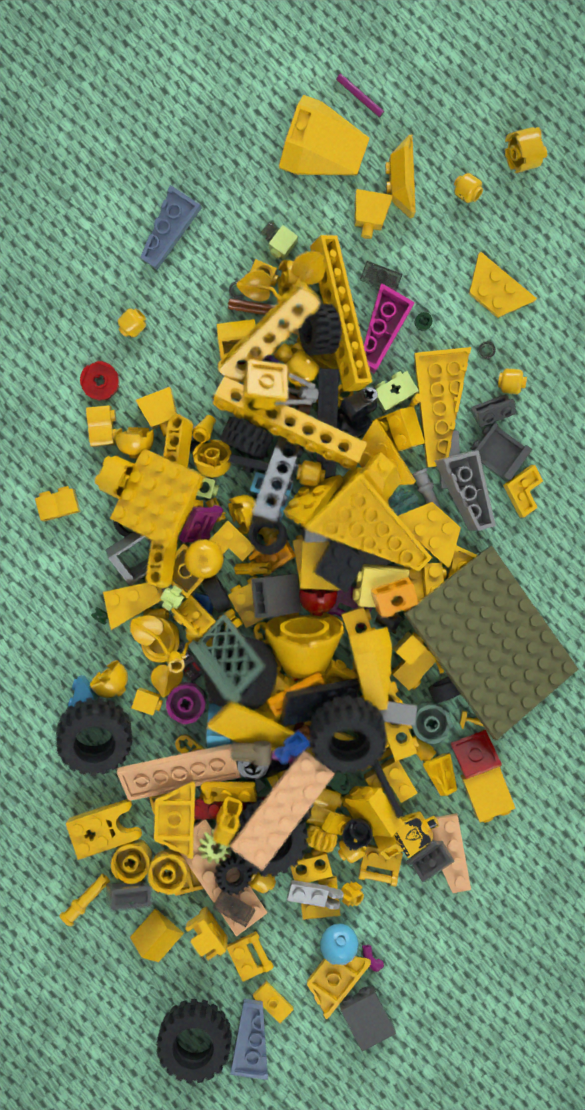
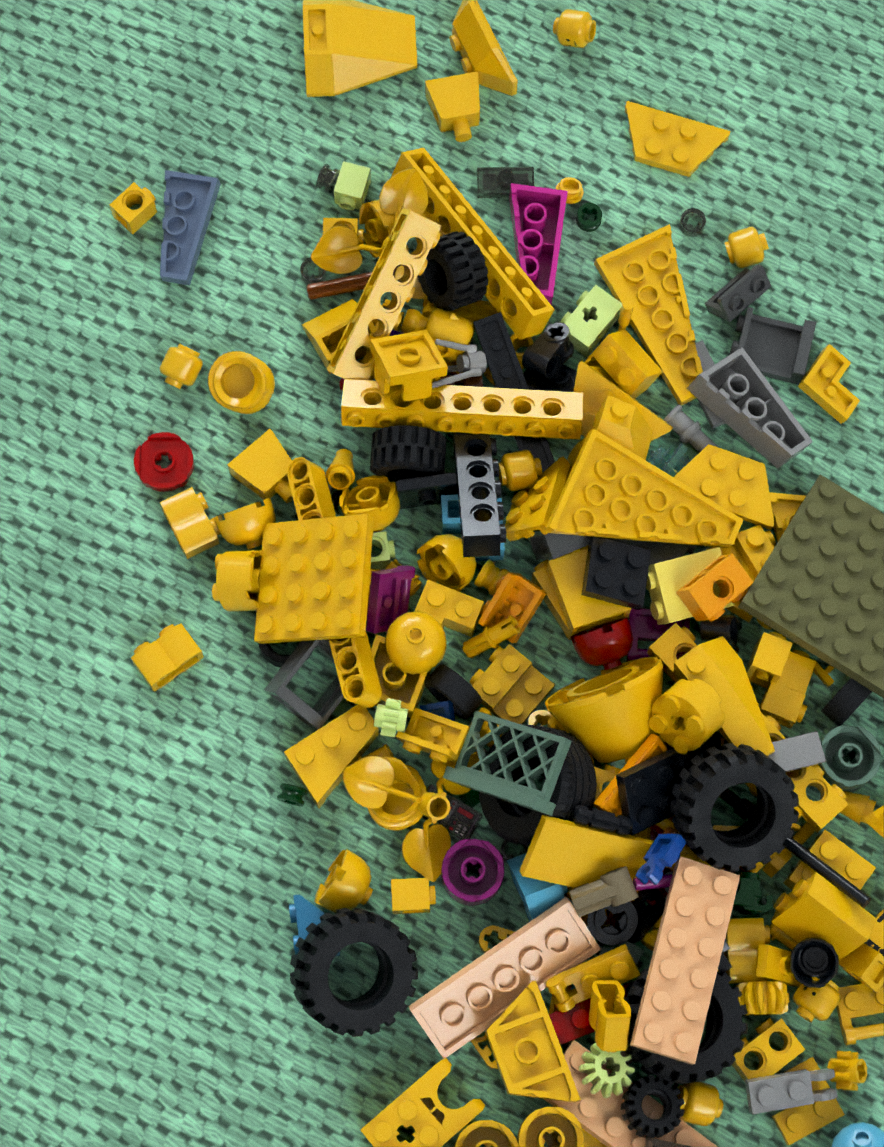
camera: 25 degrees left, 15 degrees down
(133, 200) = (129, 218): none -> yellow brick
(164, 347) = (241, 382): none -> yellow piece
(266, 713) = (601, 820): none -> black axle
(272, 548) = (502, 592): black tyre -> none
(276, 595) = (541, 658): dark grey brick -> none
(343, 671) = (687, 715): none -> yellow brick
(419, 298) = (574, 189): none -> yellow plate

